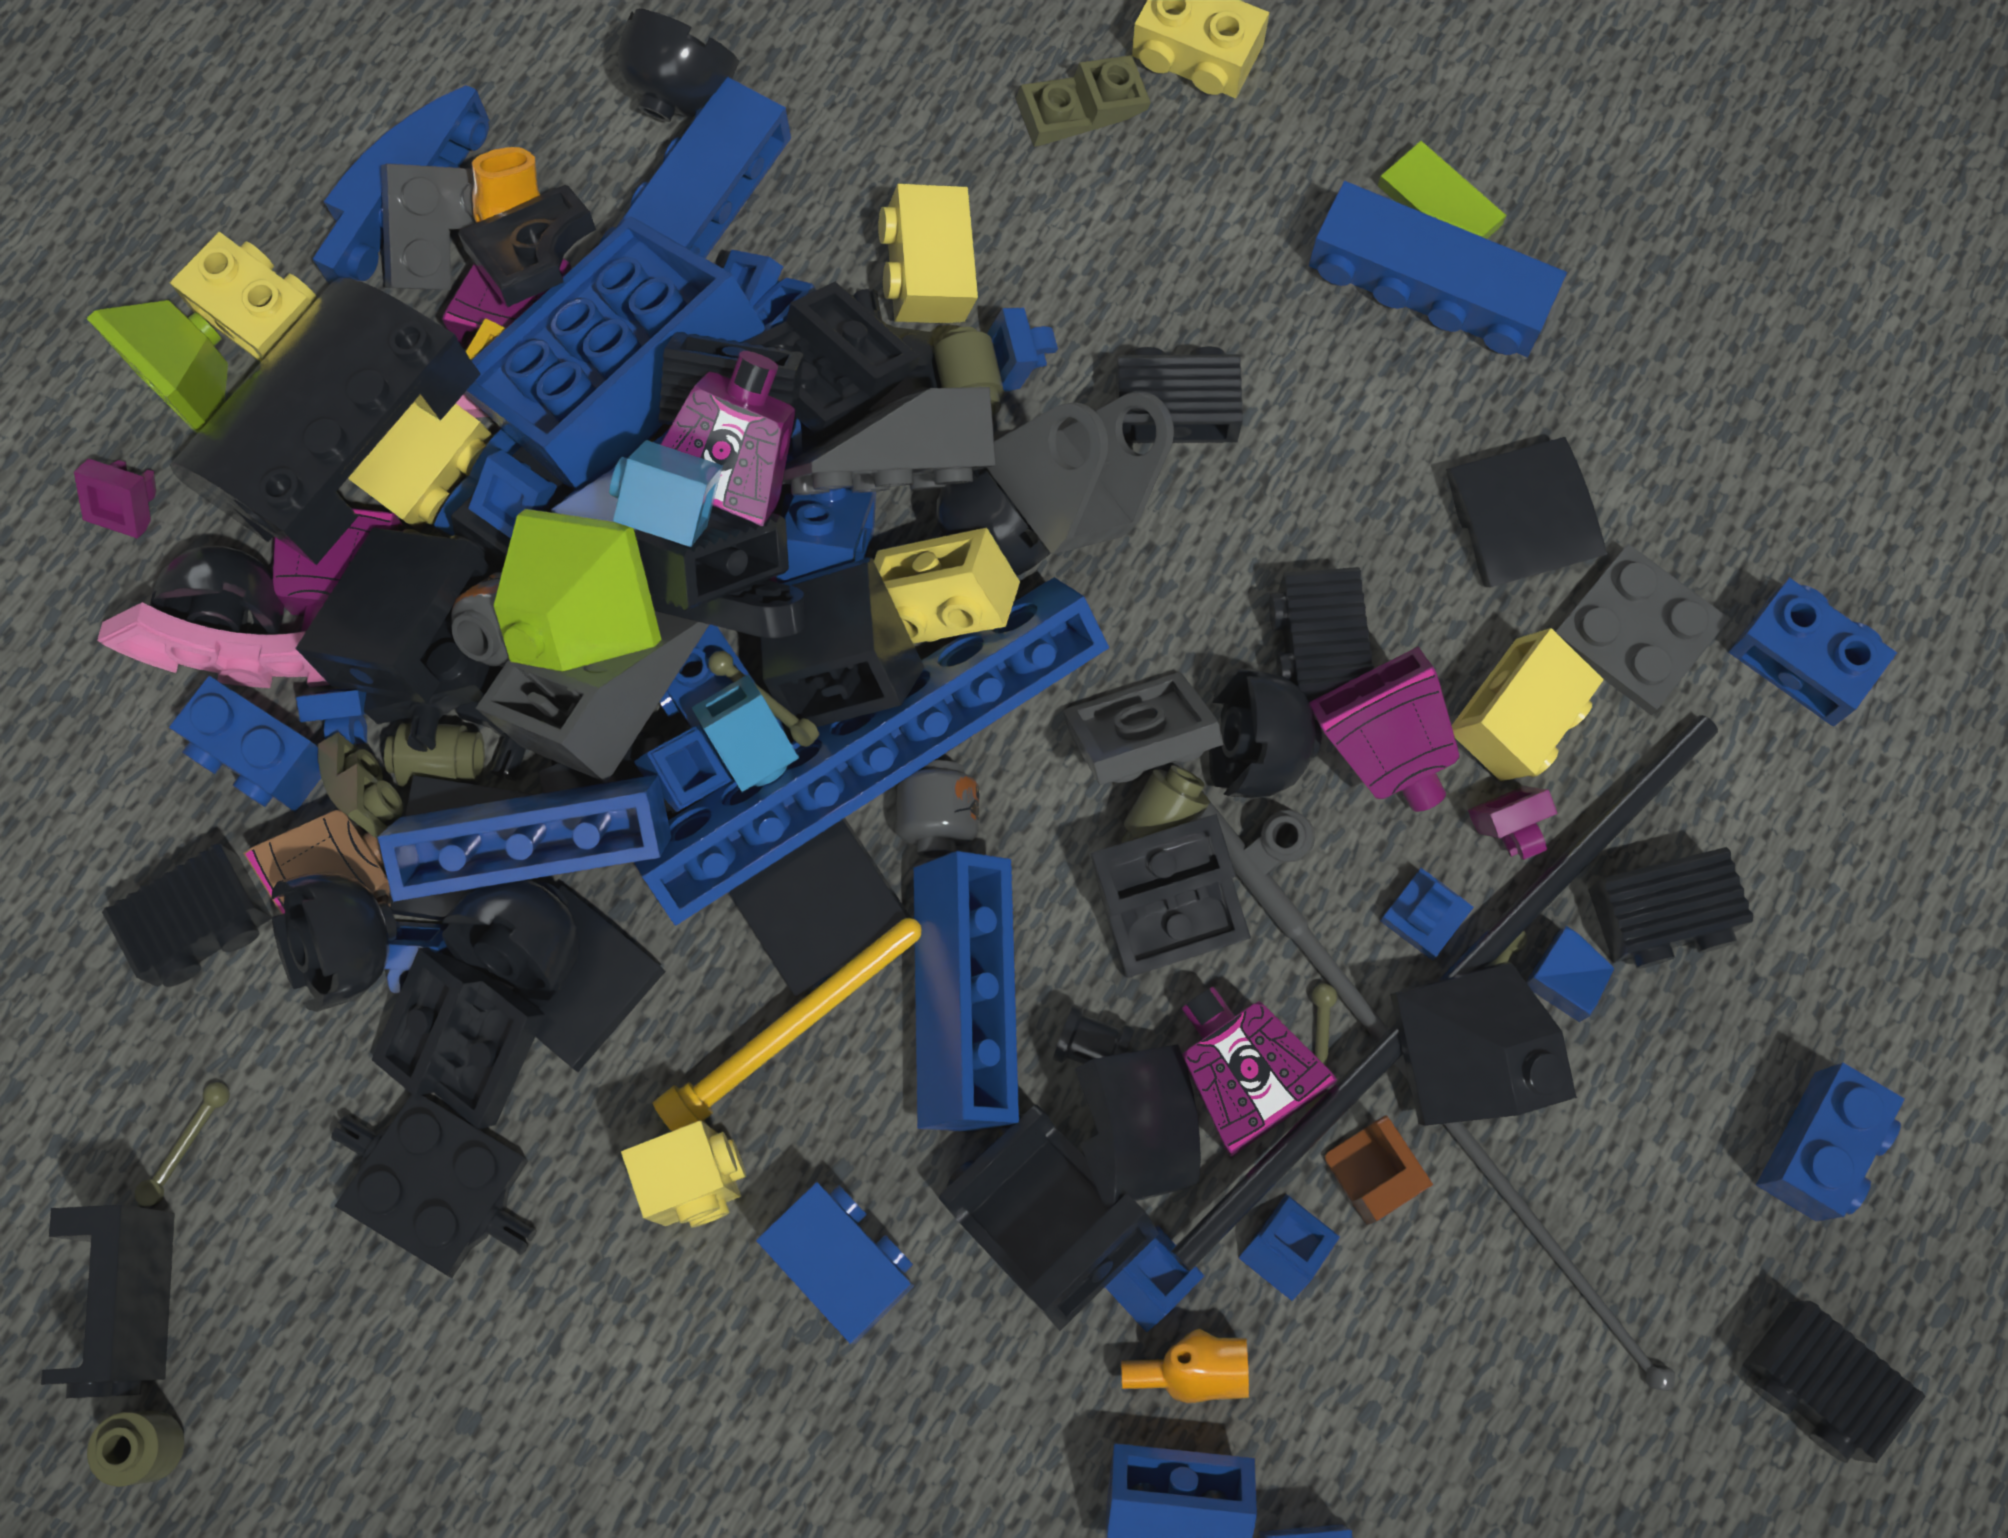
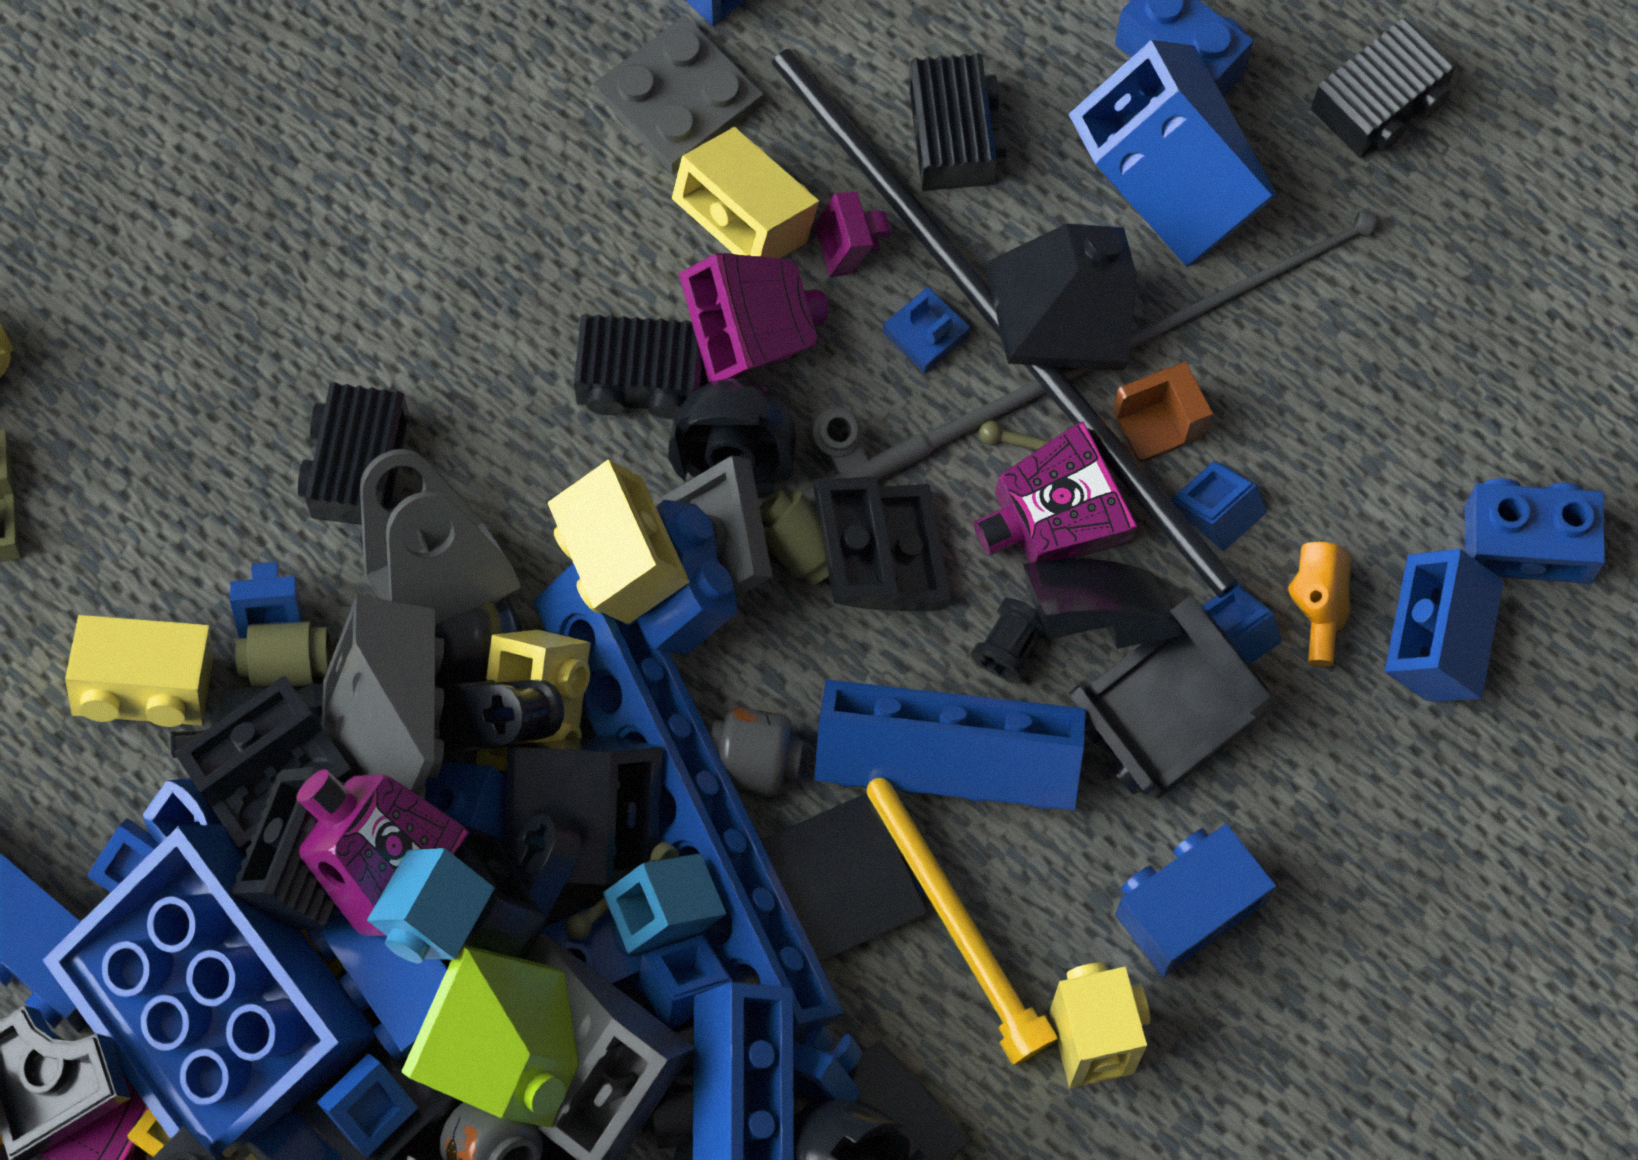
camera: 85 degrees left, 5 degrees down
(610, 906) = (824, 1074): none -> blue tile
(908, 543) = (498, 714): none -> black piece
(1097, 623) = (617, 543): none -> light yellow brick
(1097, 692) = (703, 603): none -> blue brick
(1435, 188) = (185, 175): lime tile -> none
(1435, 270) = (269, 193): blue brick -> none
(1526, 512) = (542, 164): black slope -> none
(1571, 975) = (1002, 218): blue slope -> none
(1689, 1142) = (1174, 148): none -> blue slope

